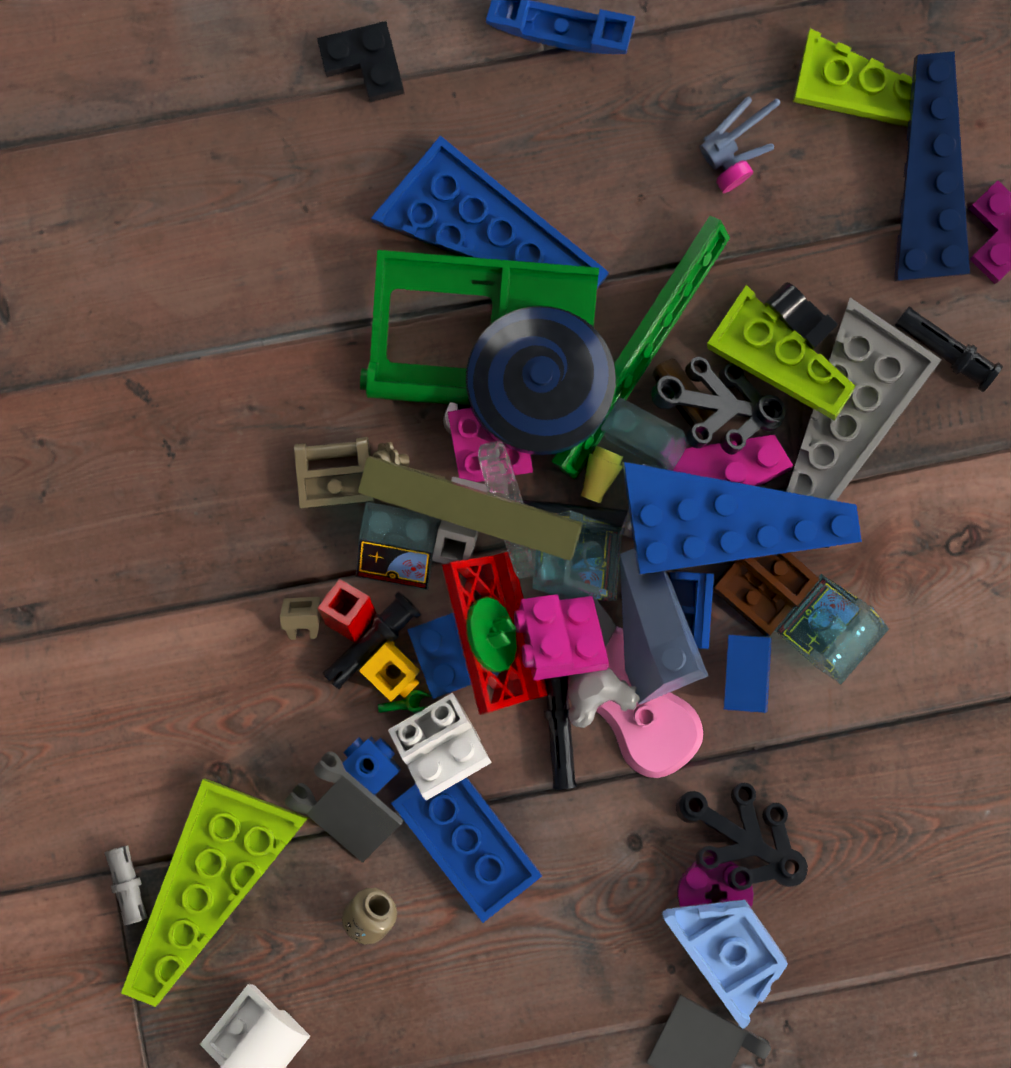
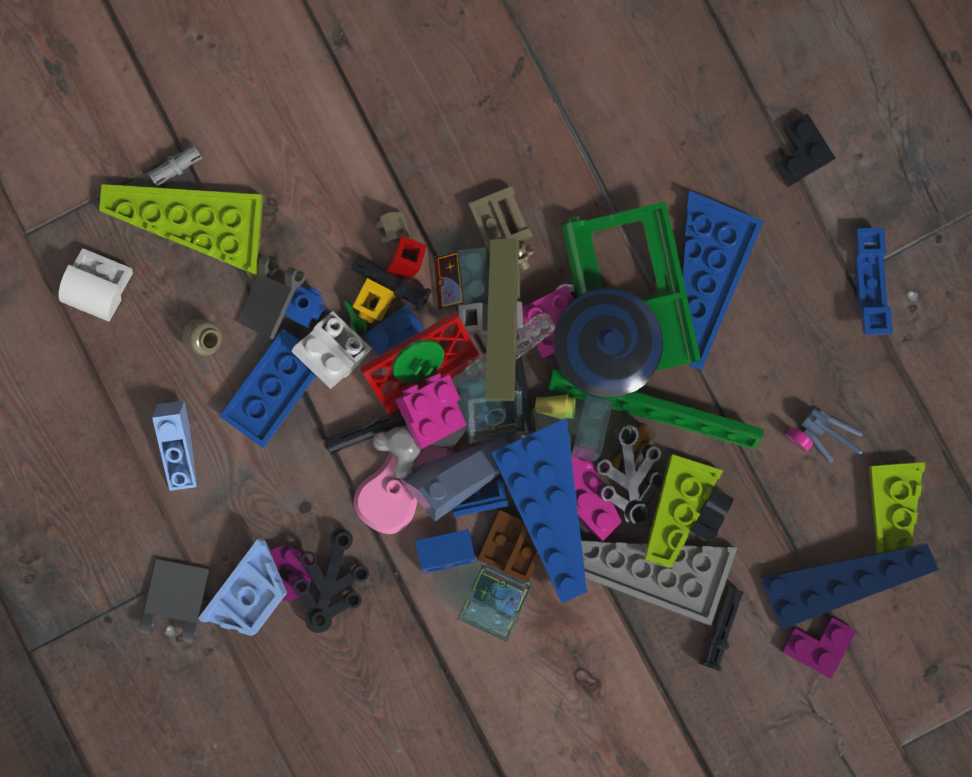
camera: 75 degrees right, 0 degrees up
(502, 993) = (175, 444): none -> light blue slope

